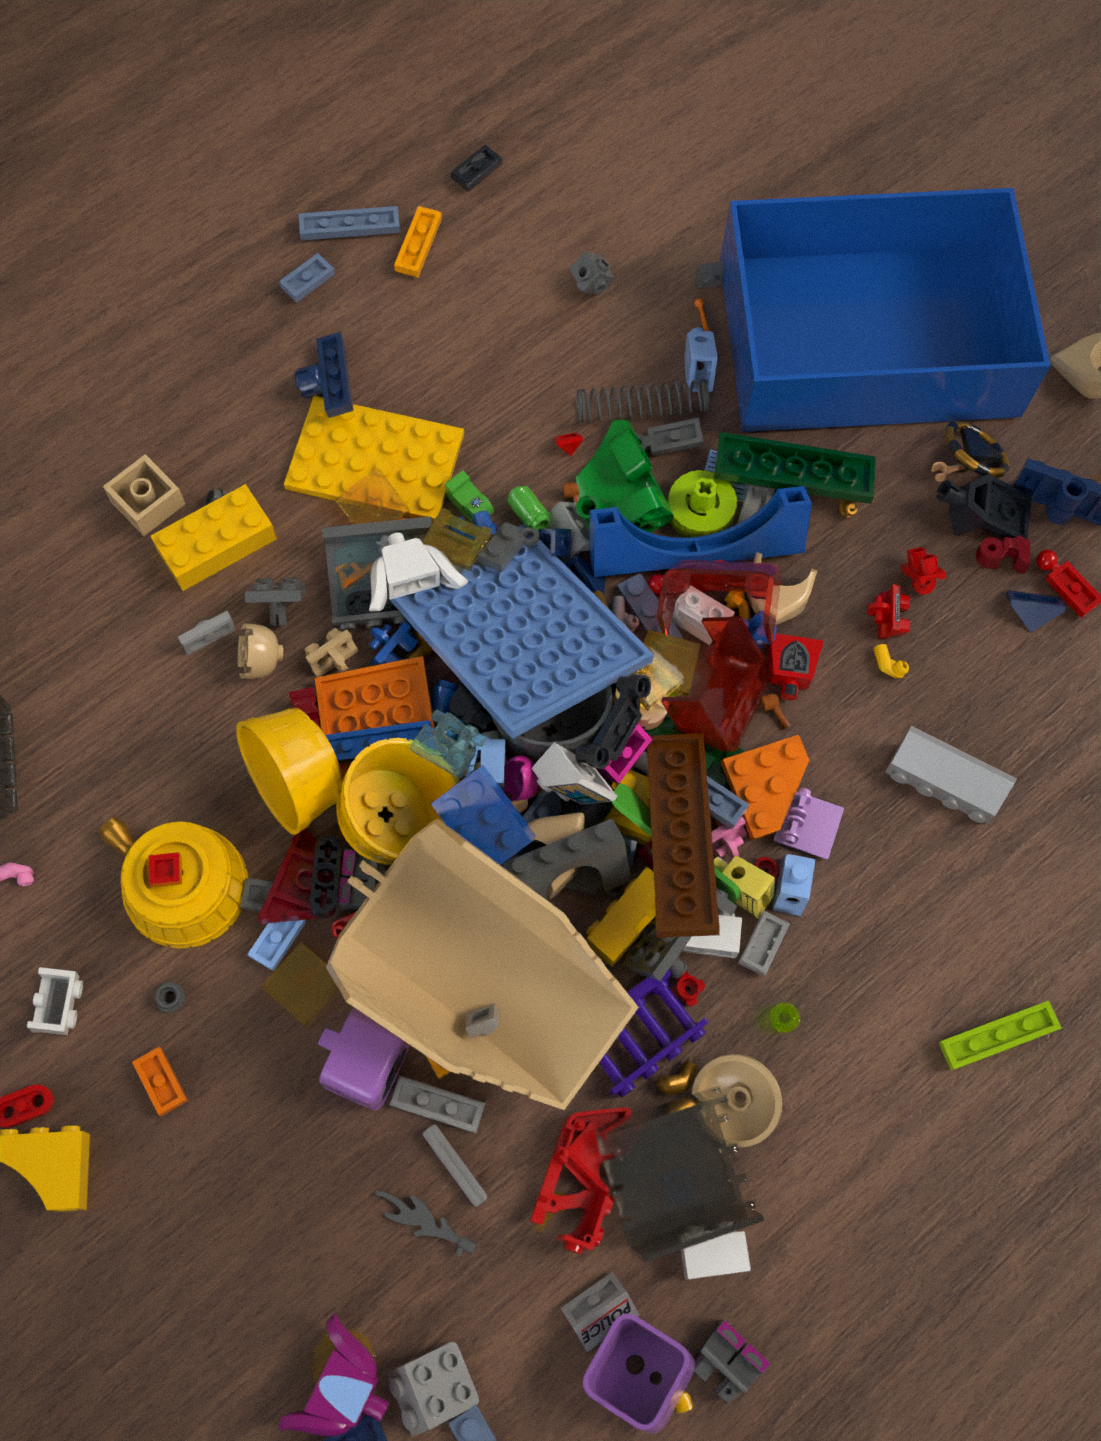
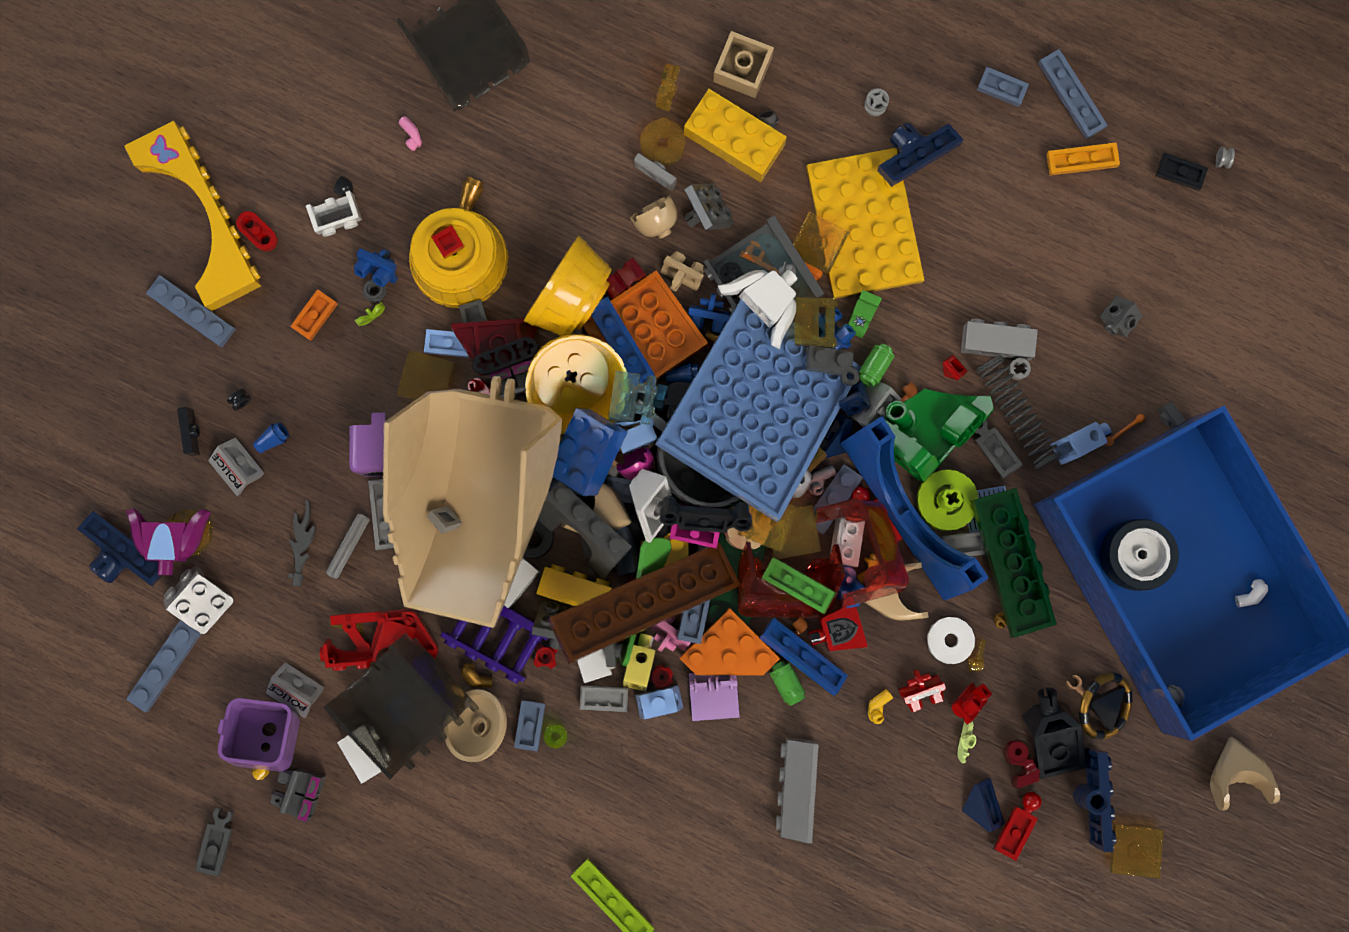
camera: 70 degrees right, 15 degrees up
(29, 978) = (343, 185): none -> black hinge
(71, 1236) = (190, 311): none -> sand blue plate
(120, 574) = (668, 87): none -> clear yellow plate
(142, 978) = (377, 264): none -> blue hips
(171, 600) = (663, 129): none -> clear yellow plate
(197, 1016) = (378, 310): none -> lime piece
(213, 1220) = (239, 399): none -> black bush
(220, 1302) = (189, 431): none -> black plate
(257, 386) = (878, 97): none -> light grey wheel
(279, 1200) = (273, 436): none -> blue cone
(291, 1264) = (235, 465): none -> light grey panel
(482, 127) = (1225, 157): none -> light grey bush
(559, 388) = (999, 339): none -> light grey brick
(598, 377) = (1026, 369): none -> light grey bush
(730, 674) = (799, 585): none -> bright green plate
(760, 1040) = (529, 725): none -> sand blue plate
(806, 711) = (803, 656): none -> blue plate
(828, 740) = (787, 683): none -> bright green head
(837, 345) = (1157, 551): none -> wheel
(848, 551) = (963, 646): none -> white tile
(884, 549) = (977, 665): none -> clear yellow hand
(921, 280) = (1259, 590): none -> white arm
(959, 595) = (966, 741): none -> yellowish green piece

